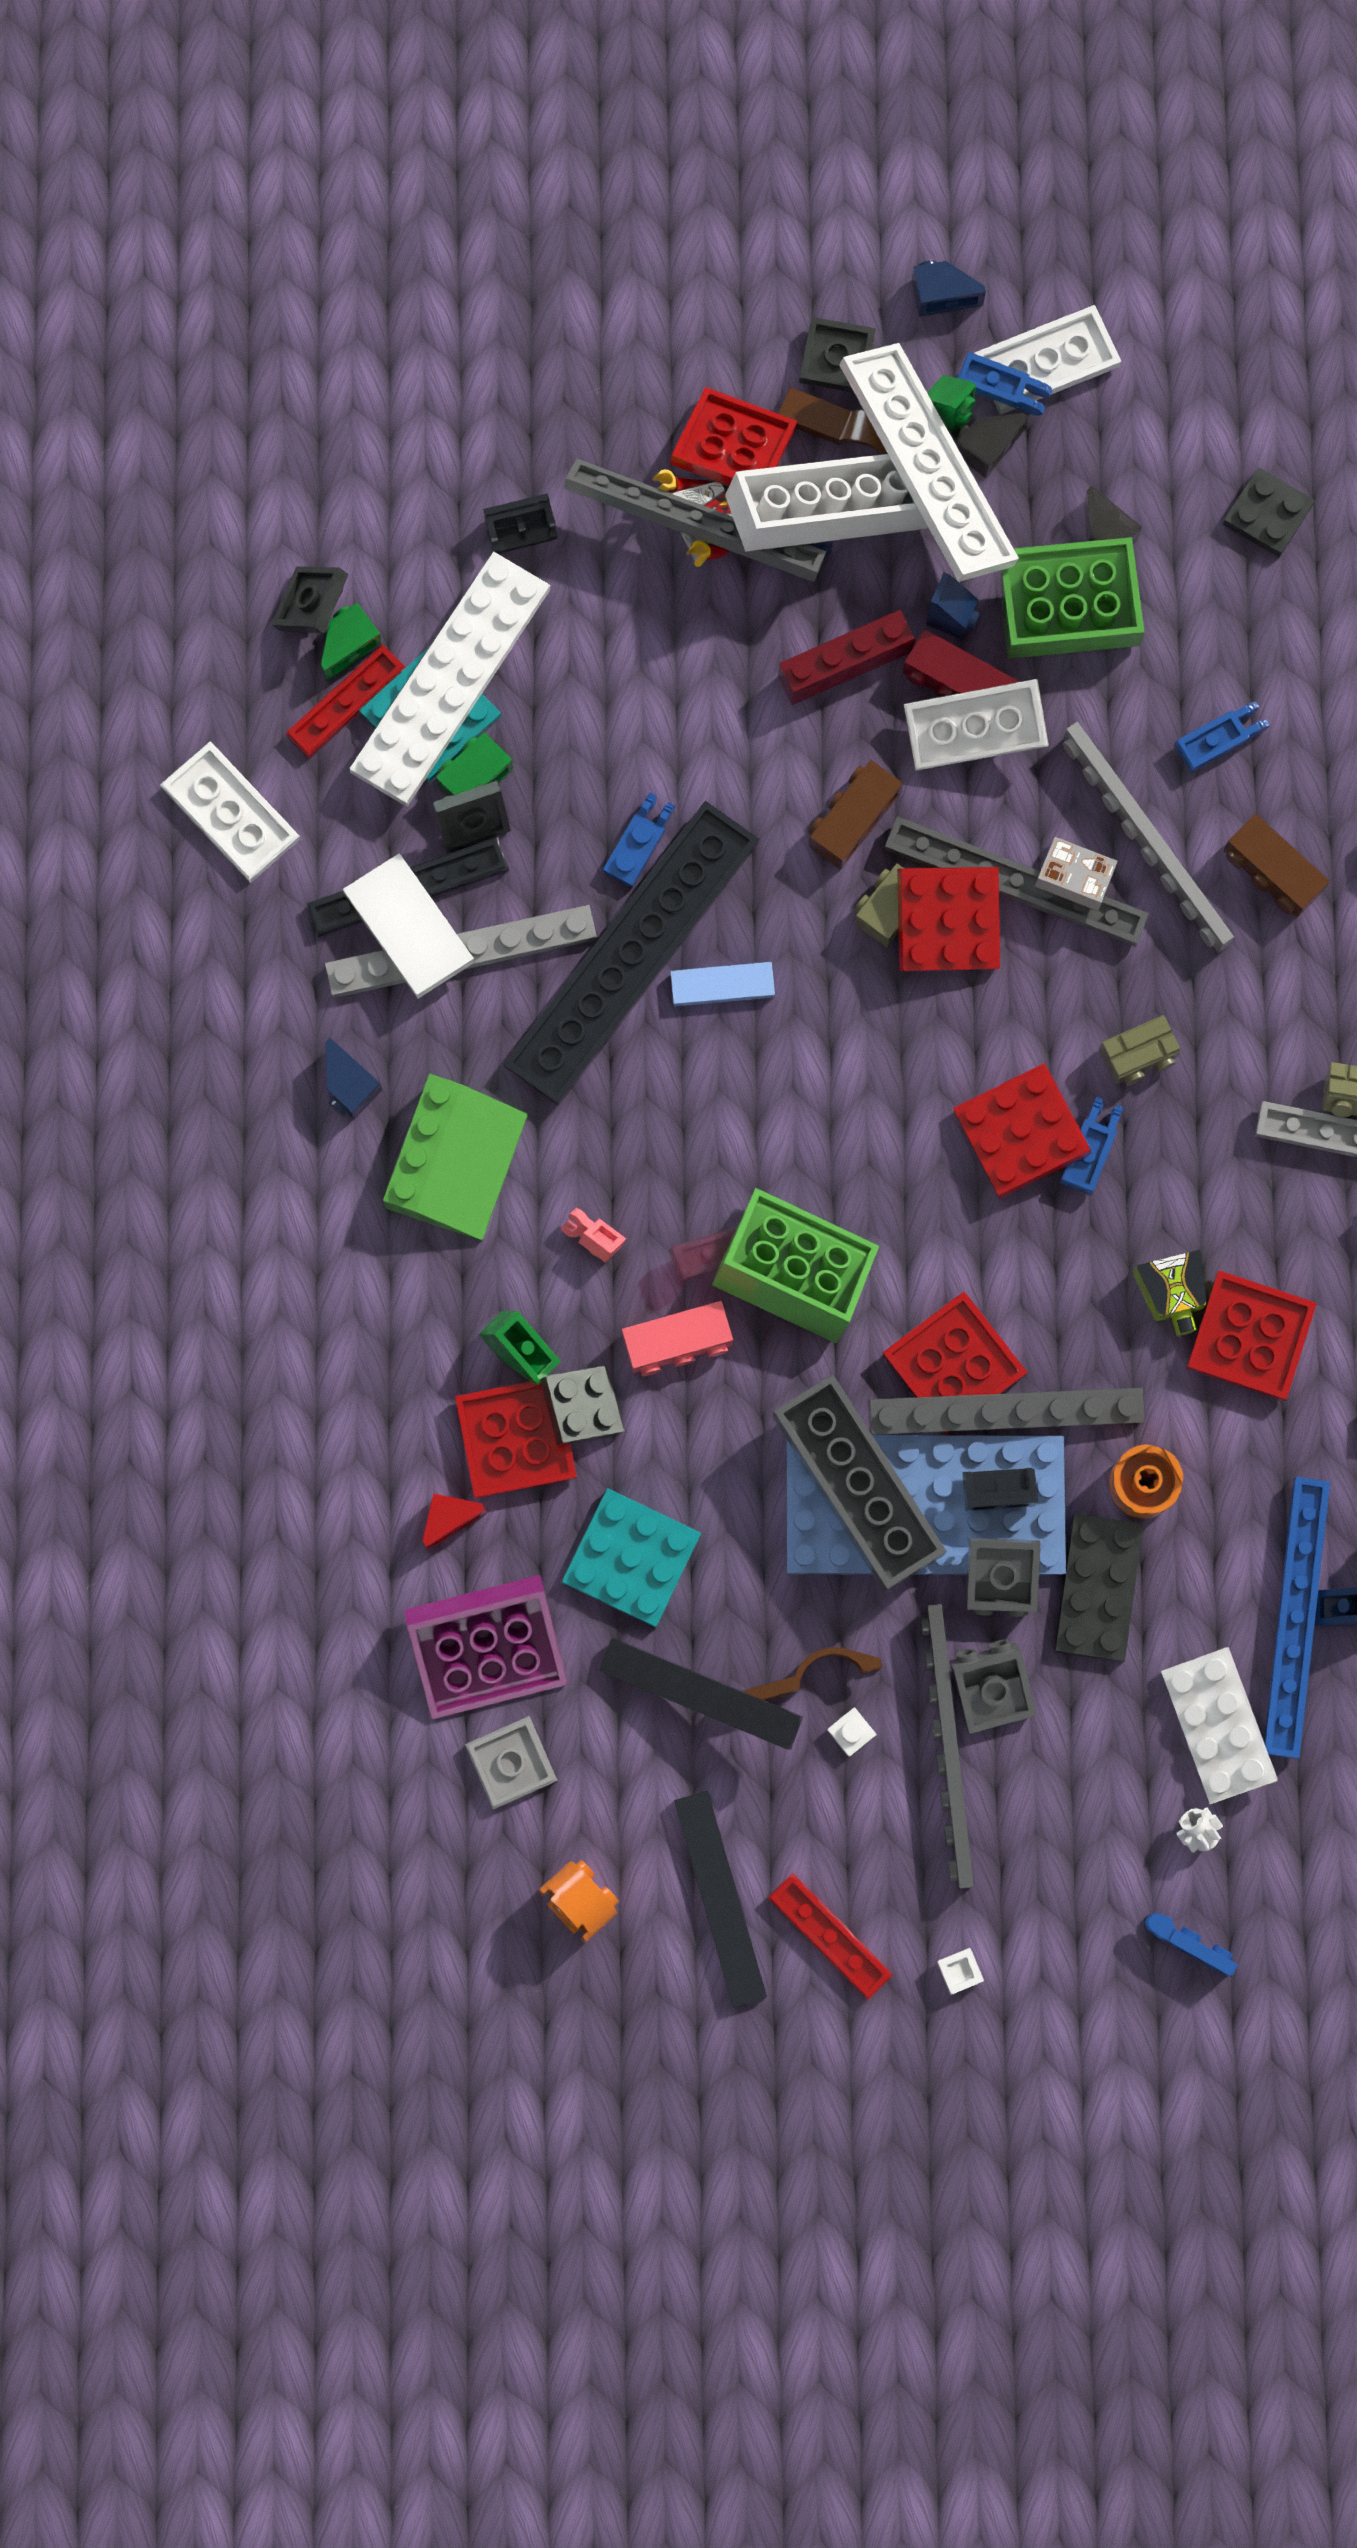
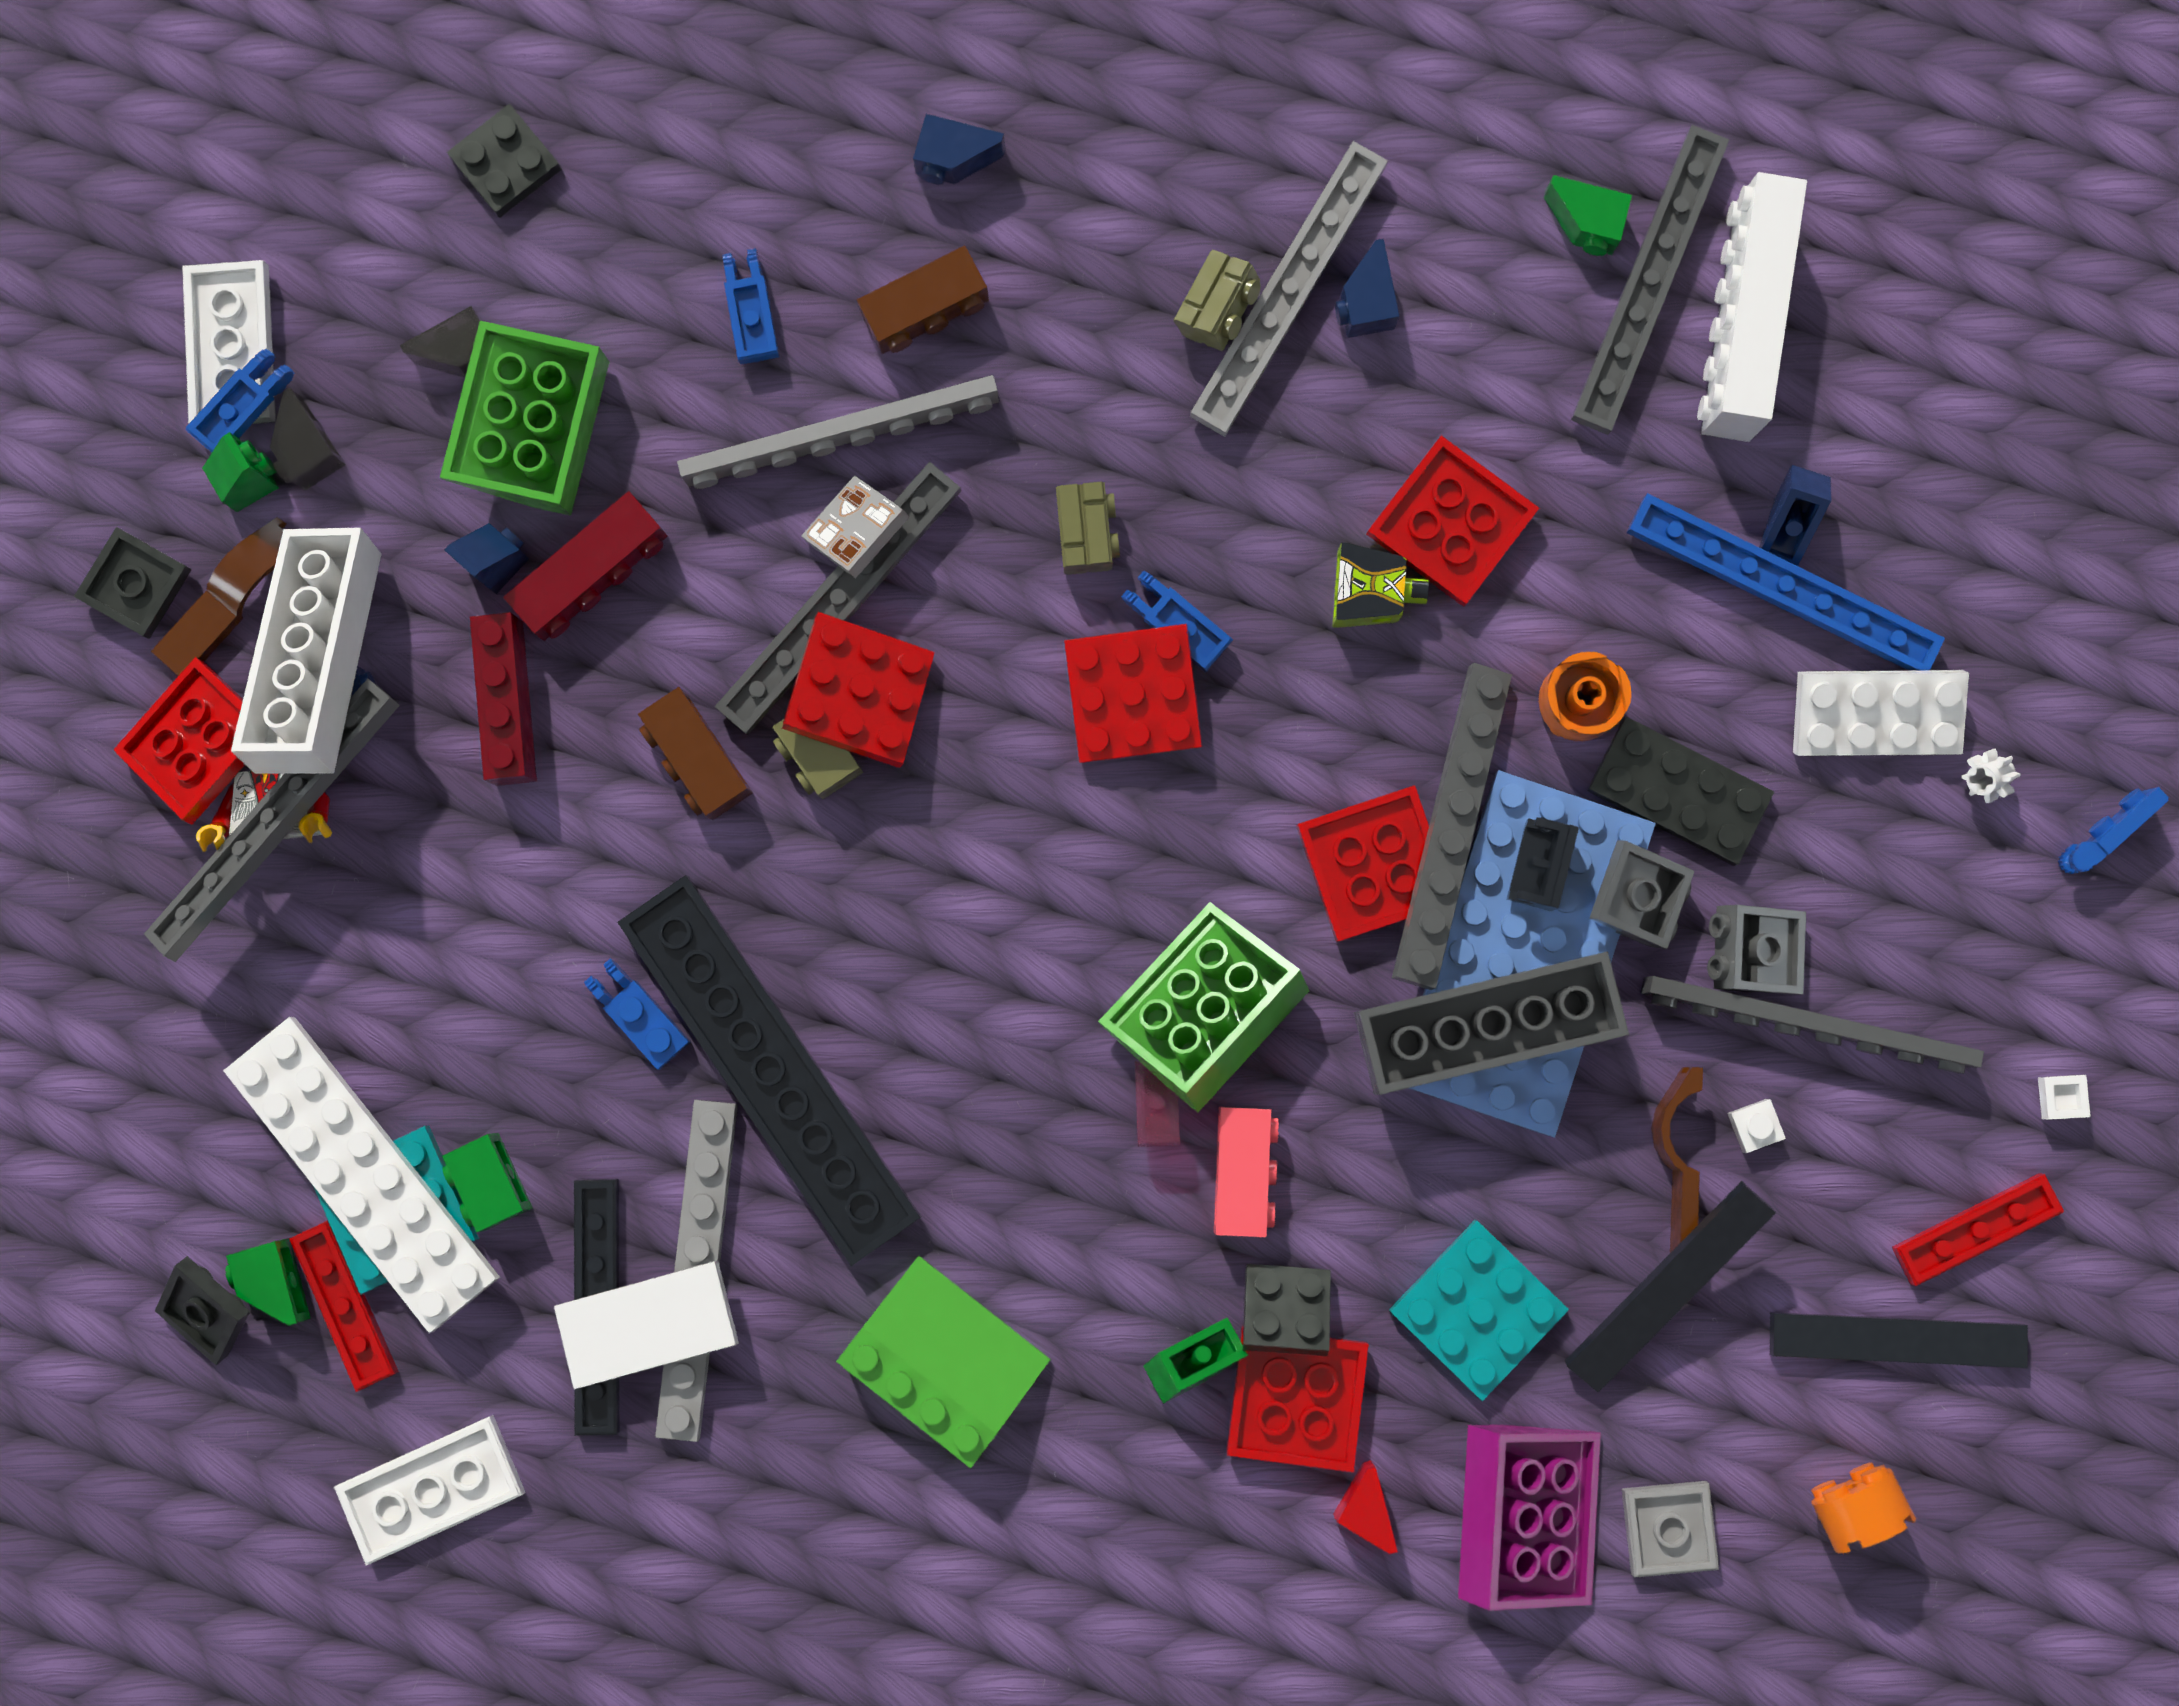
camera: 65 degrees left, 5 degrees up
(348, 1082) = (809, 1459): dark blue slope -> none
(471, 816) = (539, 1206): pearl dark grey plate -> none
(520, 523) = (200, 1025): black hinge -> none
(596, 1237) = (1094, 1224): coral plate -> none
(722, 984) = (842, 976): light blue tile -> none
(928, 462) = (302, 520): white plate -> none
(944, 288) = (98, 430): dark blue slope -> none
(976, 724) = (639, 577): white tile -> none

